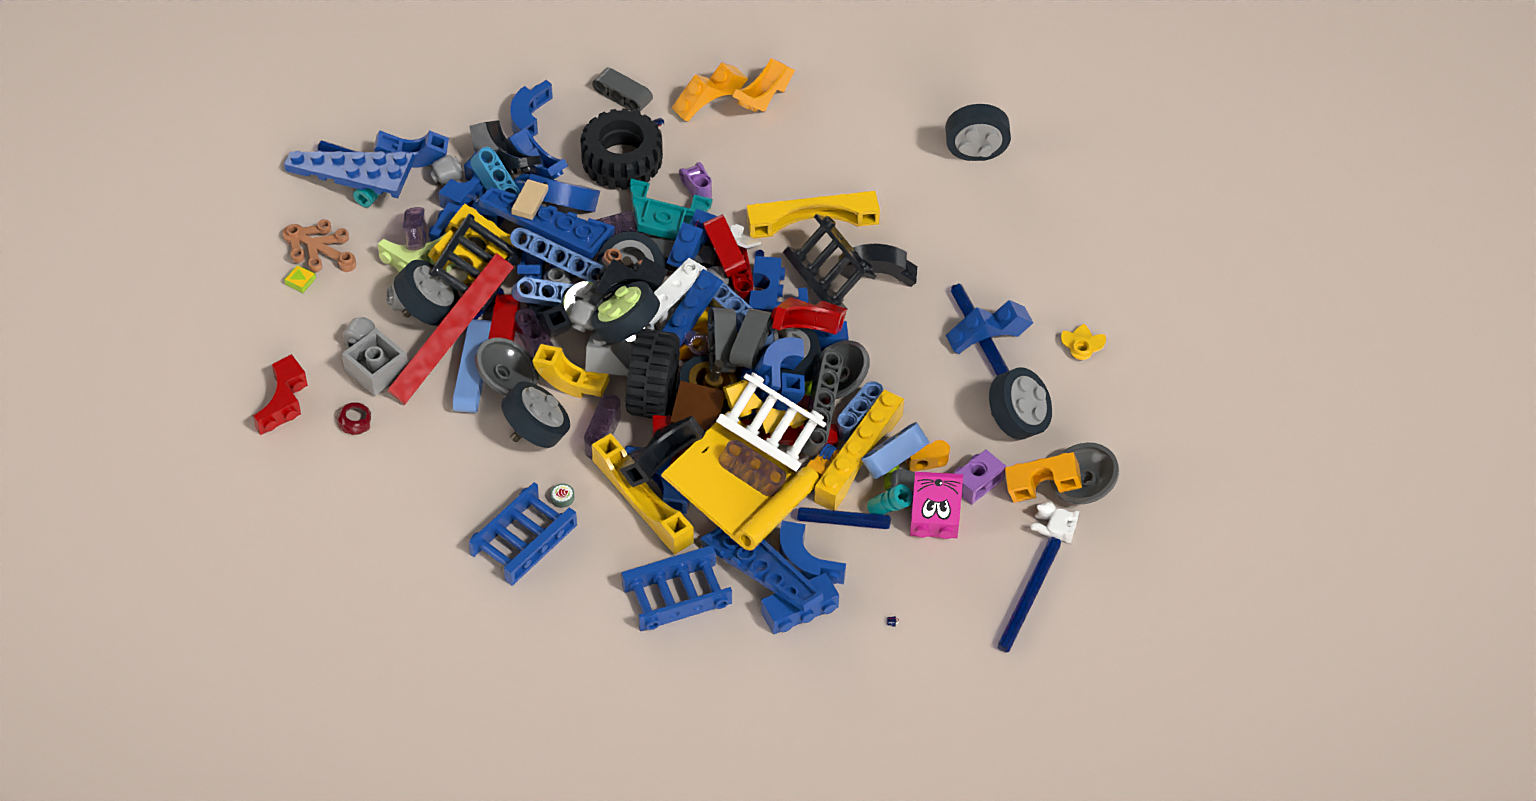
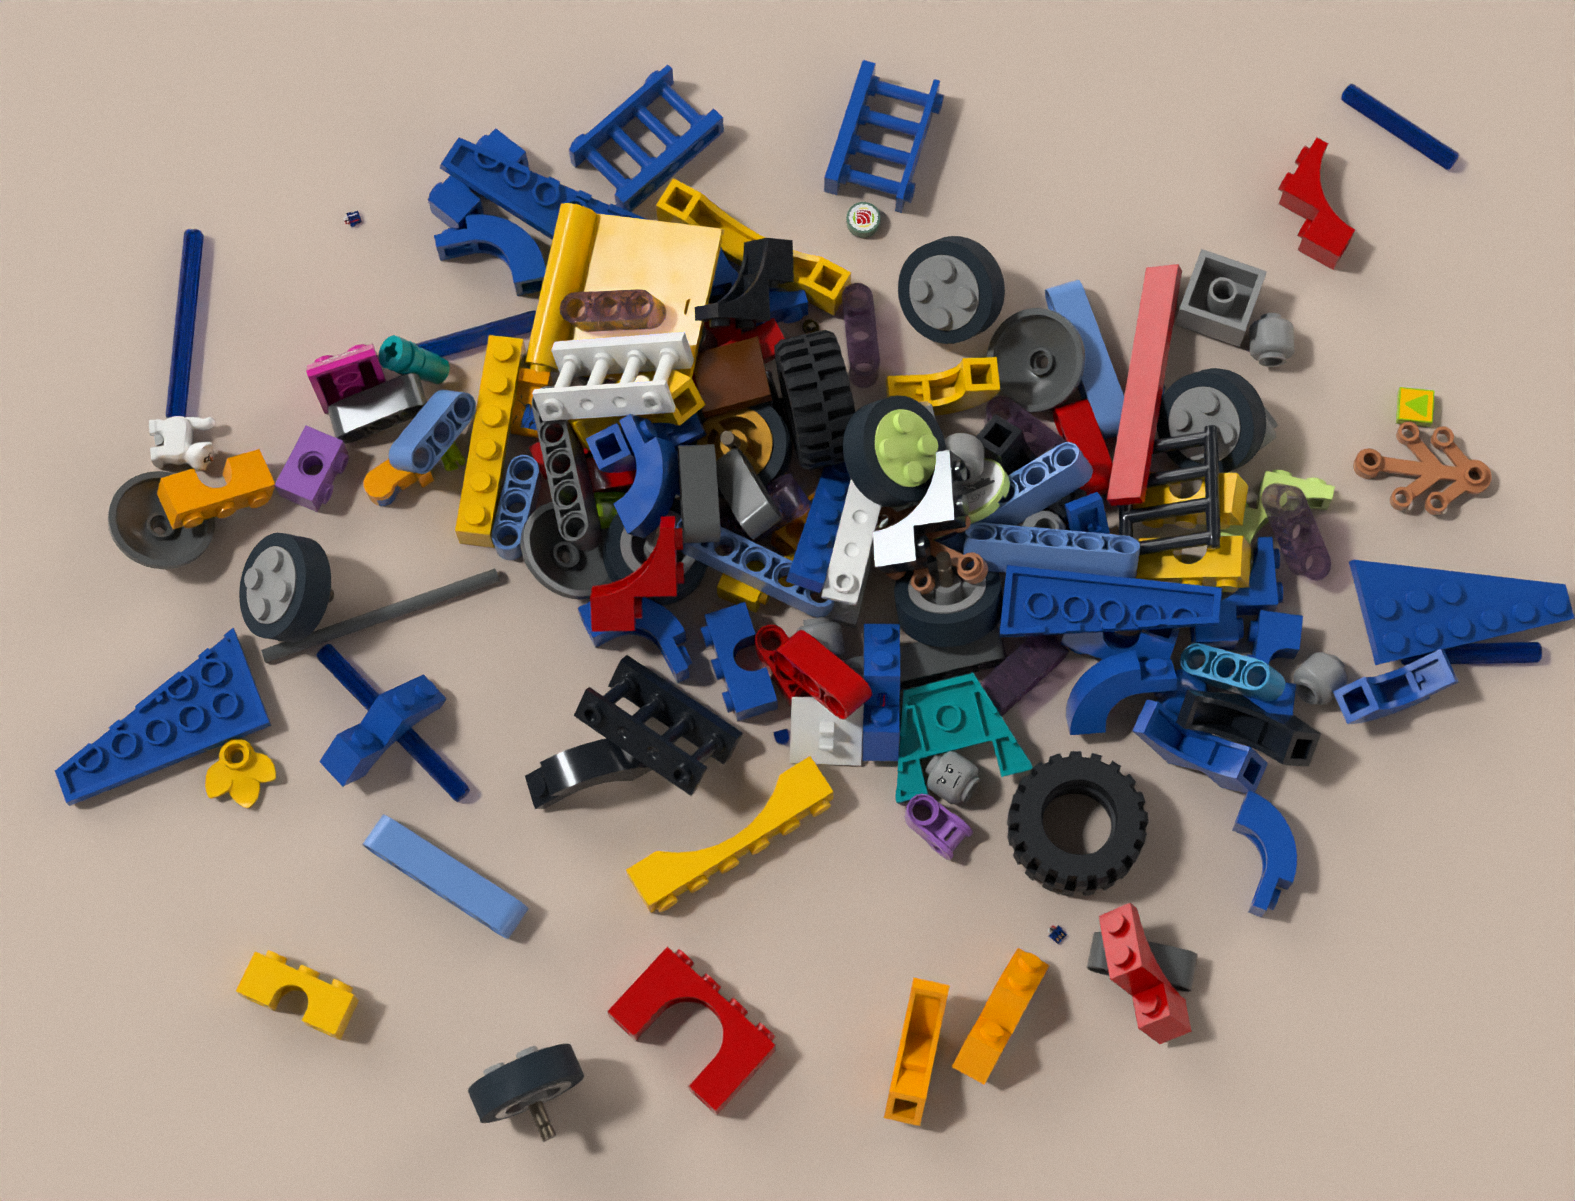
camera: 160 degrees right, 20 degrees up
(198, 424) = (1400, 126): none -> clear blue axle
(353, 427) = (1206, 238): dark red piece -> none
(529, 199) = (1146, 616): tan tile -> none
(630, 73) = (1132, 966): none -> red arch
(676, 193) = (952, 777): none -> light grey head
(876, 163) = (673, 981): none -> red arch
(939, 390) = (382, 614): none -> dark grey piece
(983, 251) = (445, 876): none -> medium blue beam
(1099, 237) = (270, 979): none -> yellow arch
(1104, 378) = (178, 720): none -> blue wing

